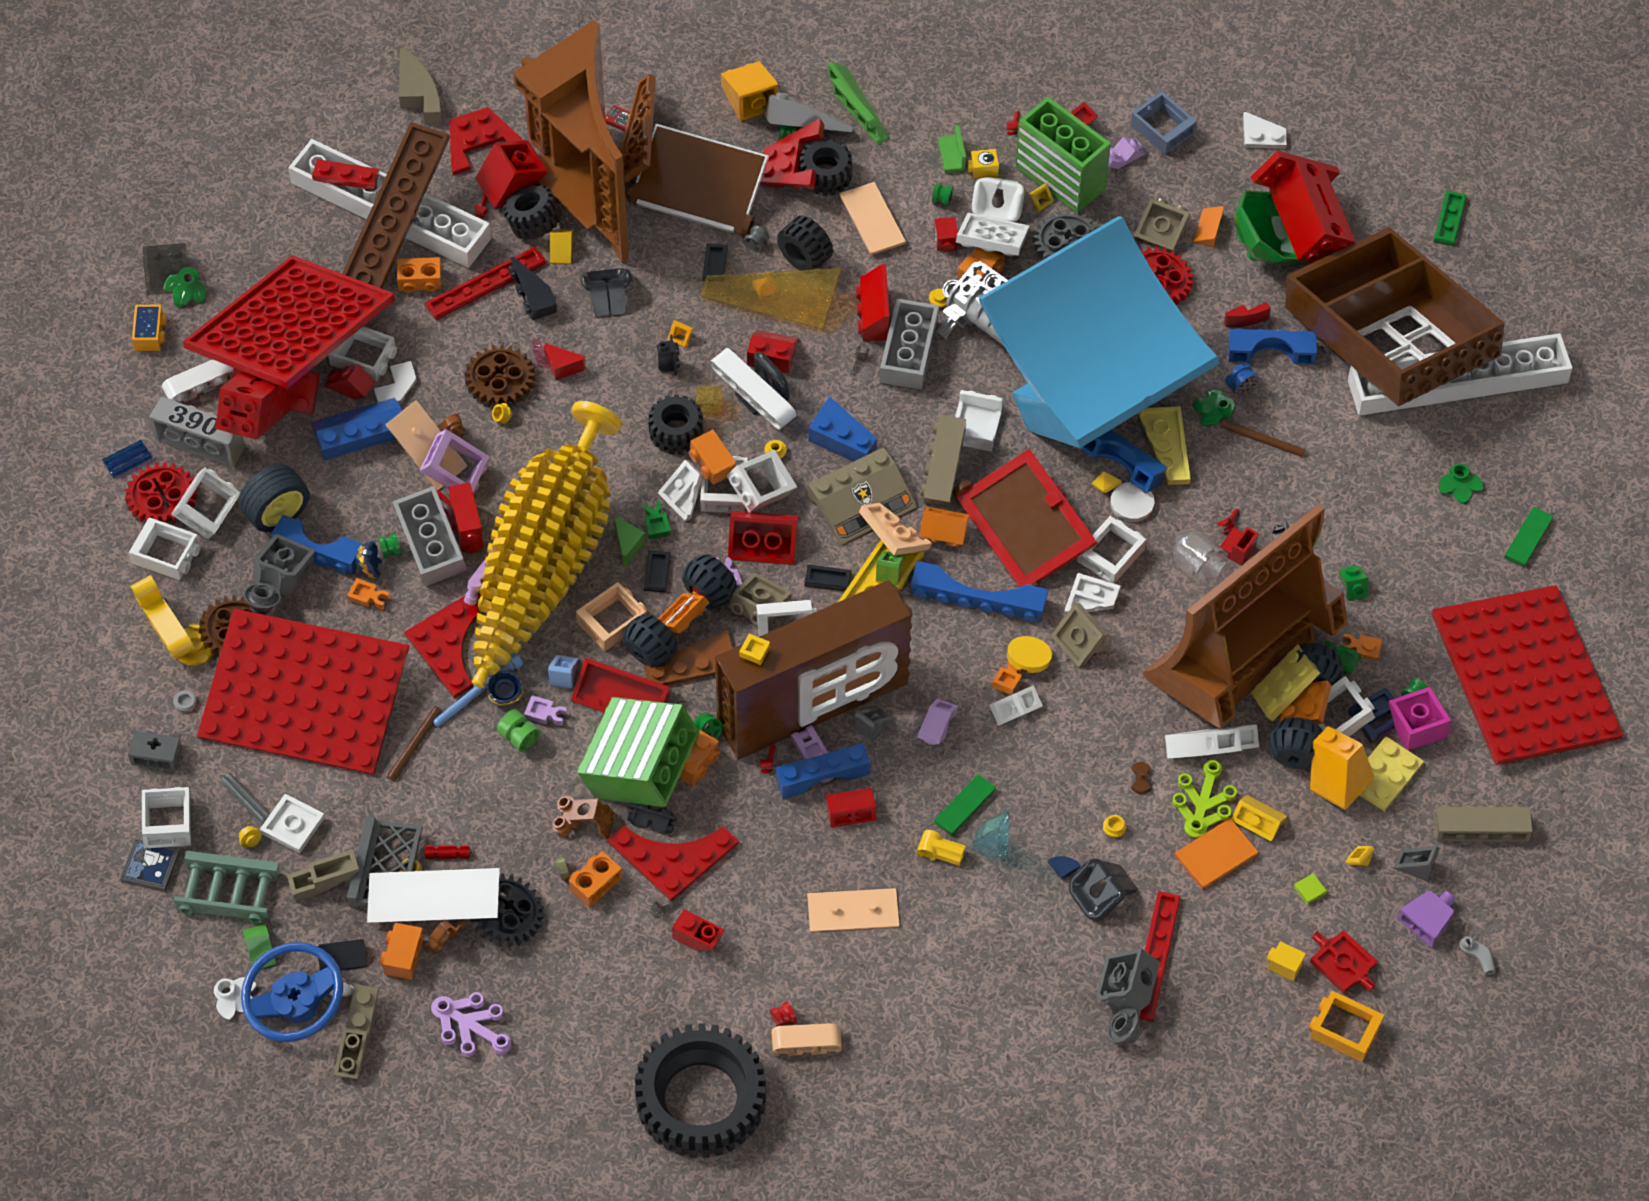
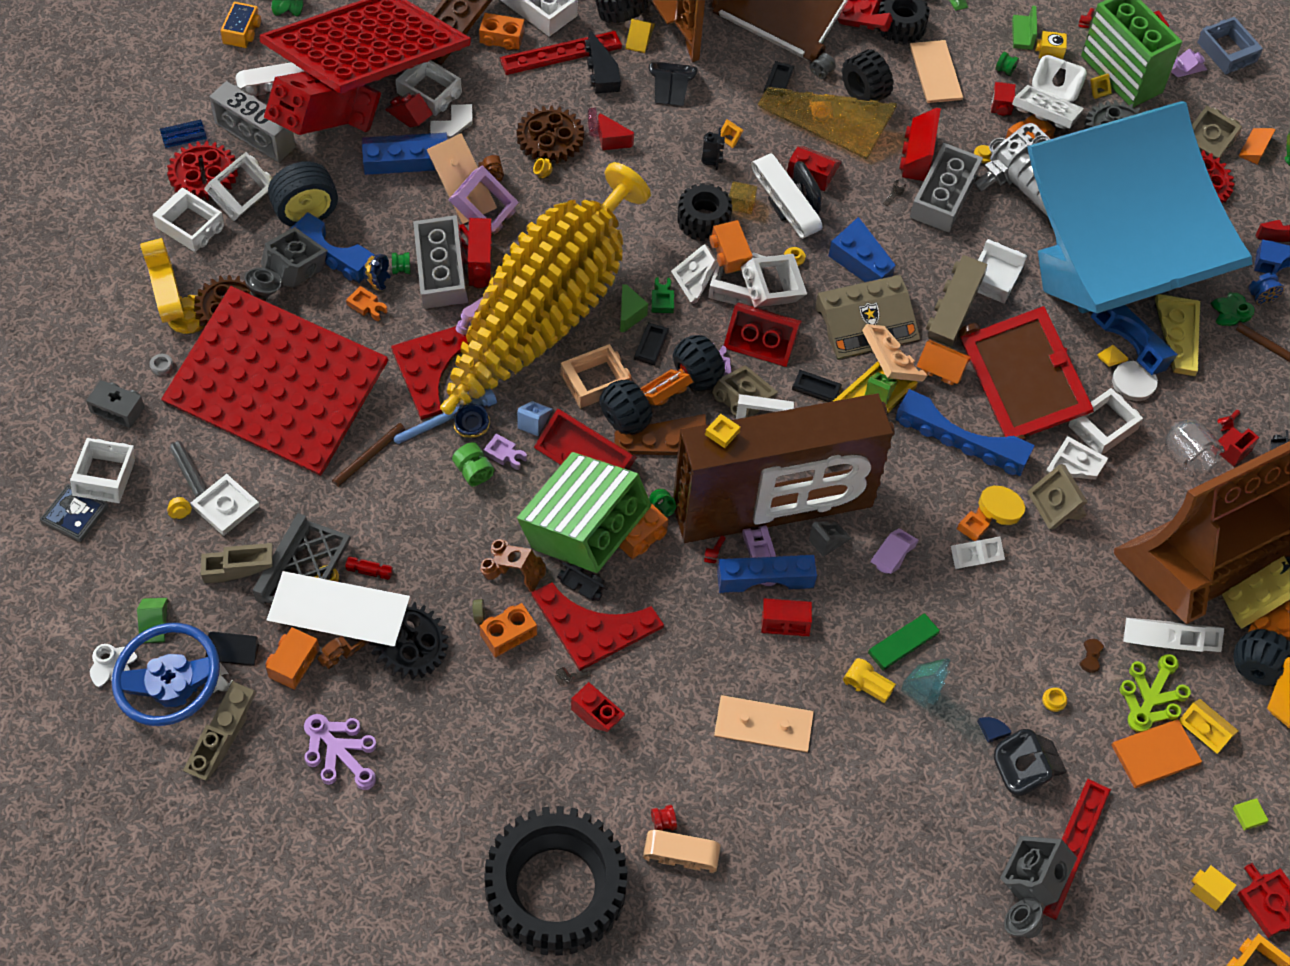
camera: 10 degrees right, 0 degrees up
(220, 866) = (140, 530): sand green fence -> none

